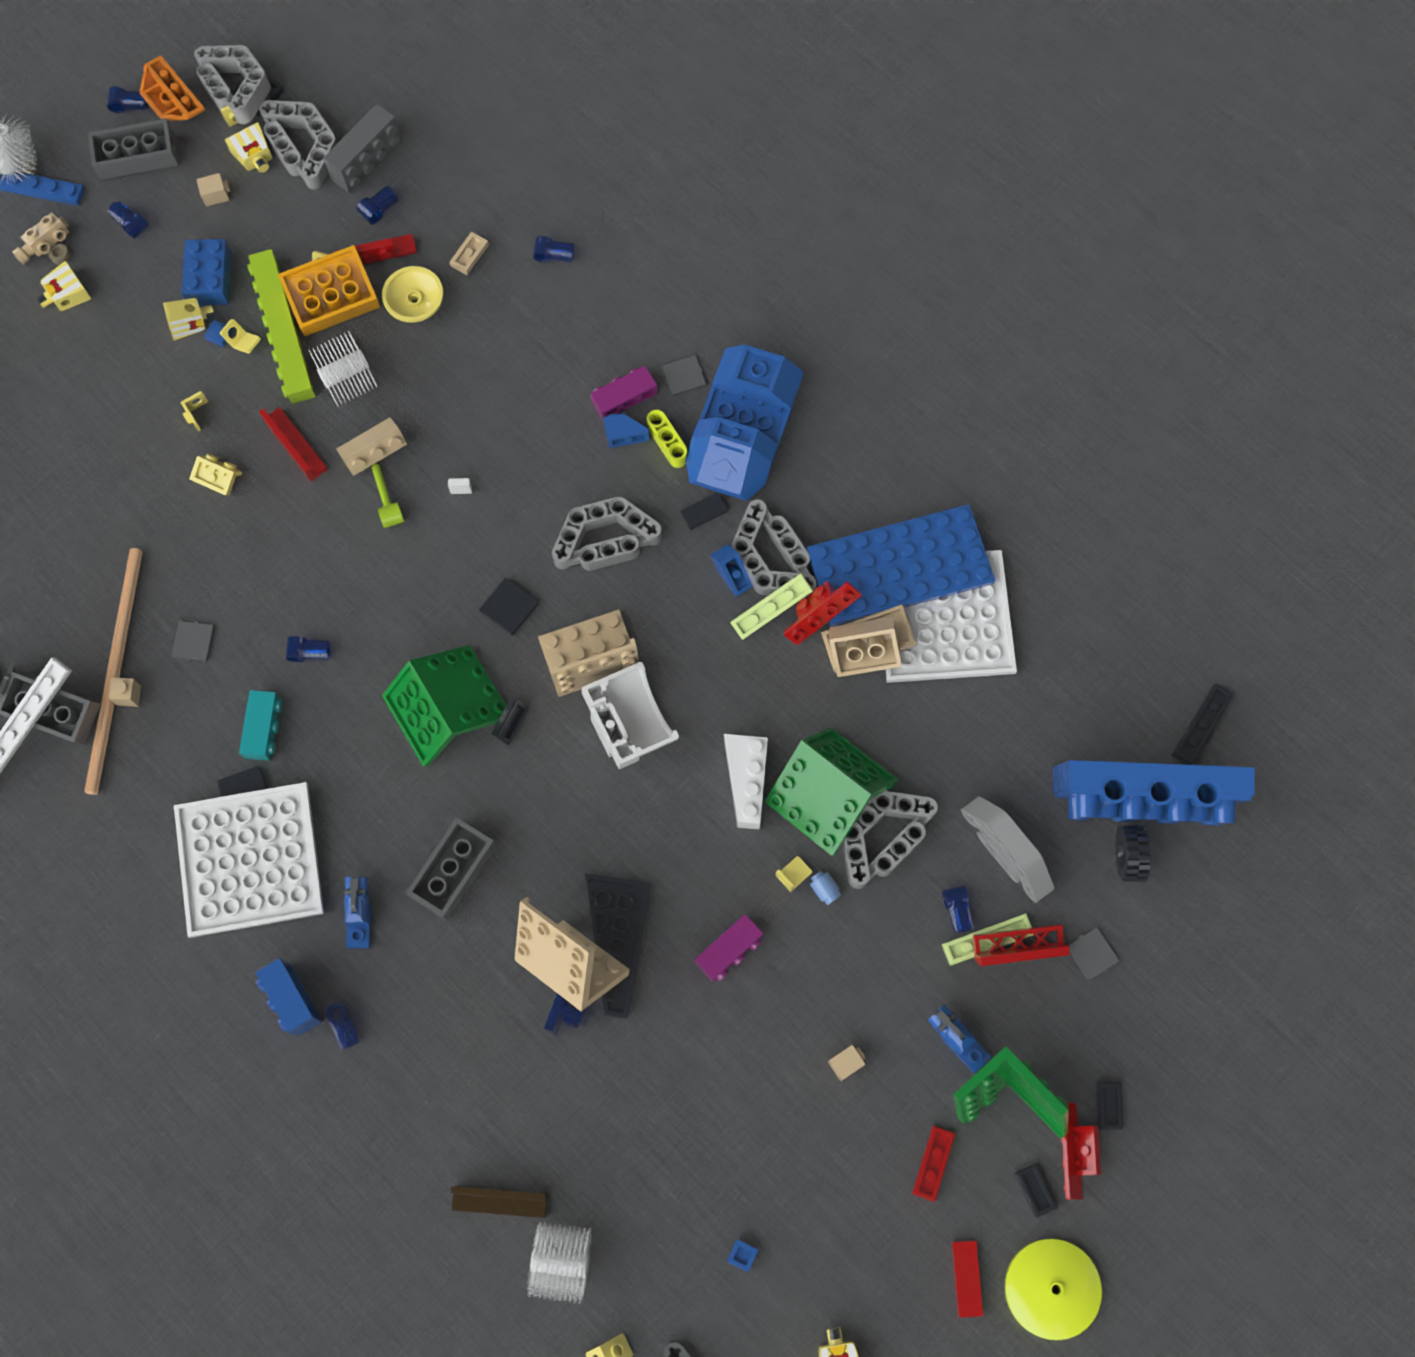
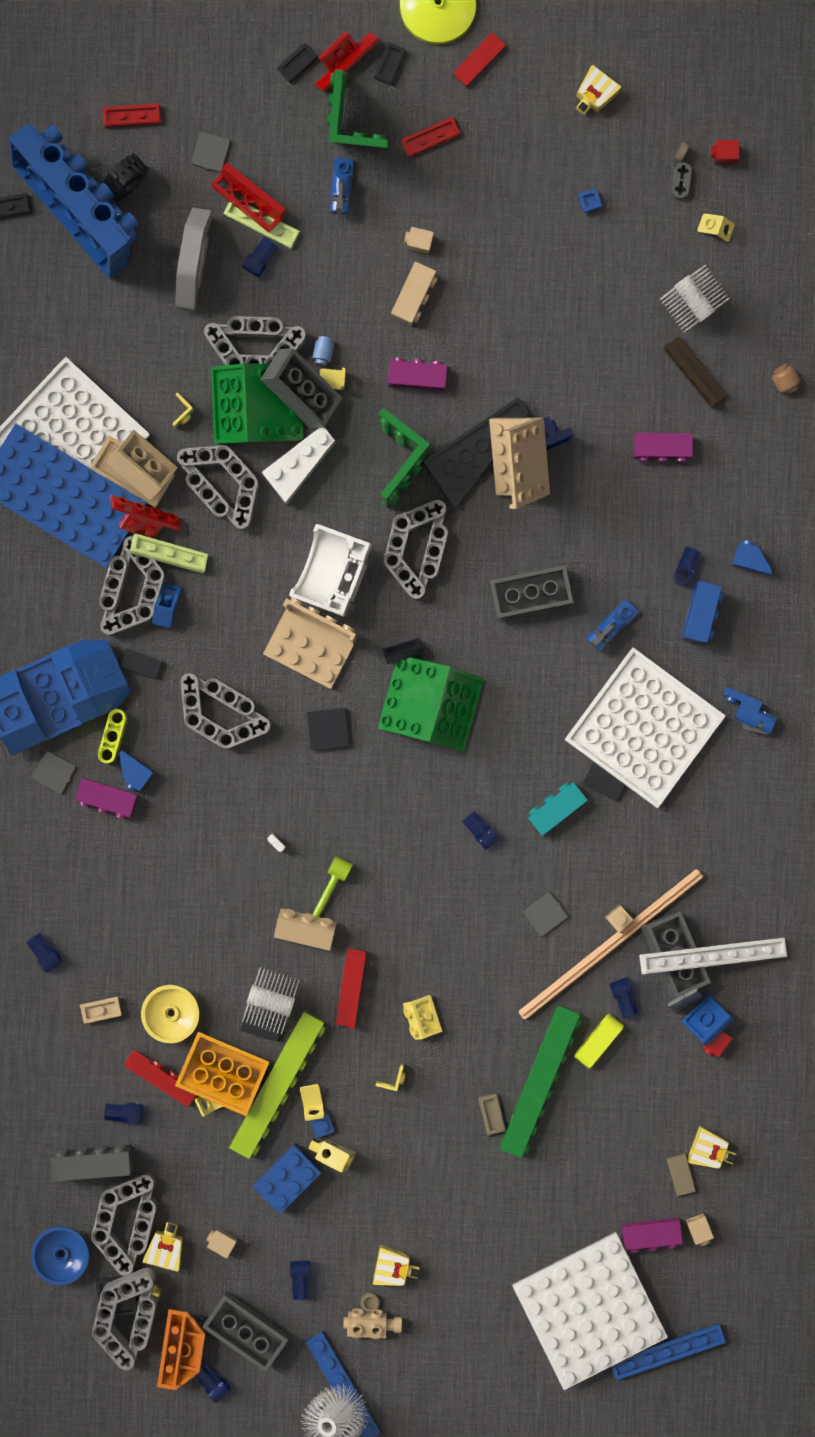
camera: 130 degrees left, 15 degrees up
(53, 589) = (598, 1040): none -> neon yellow beam
(67, 642) = (622, 993): none -> clear blue piece
(74, 517) = (539, 1081): none -> green brick
(91, 461) = (491, 1114): none -> dark tan tile
(170, 961) = (749, 712): none -> blue plate
(292, 1089) = (750, 558): none -> blue slope
(320, 67) = (57, 1268): none -> blue dish
(411, 1280) = (786, 379): none -> medium nougat head
(461, 1106) = (662, 446): none -> magenta brick
(574, 829) = (428, 560): none -> light grey piece
(673, 881) = (404, 437): none -> green bracket
(756, 686) = (204, 485): none -> light grey piece
(802, 1012) = (414, 294): none -> tan brick
(807, 830) = (301, 388): none -> dark grey brick
(874, 723) = (185, 417): none -> light yellow bracket
(1185, 915) = (131, 115): none -> red tile

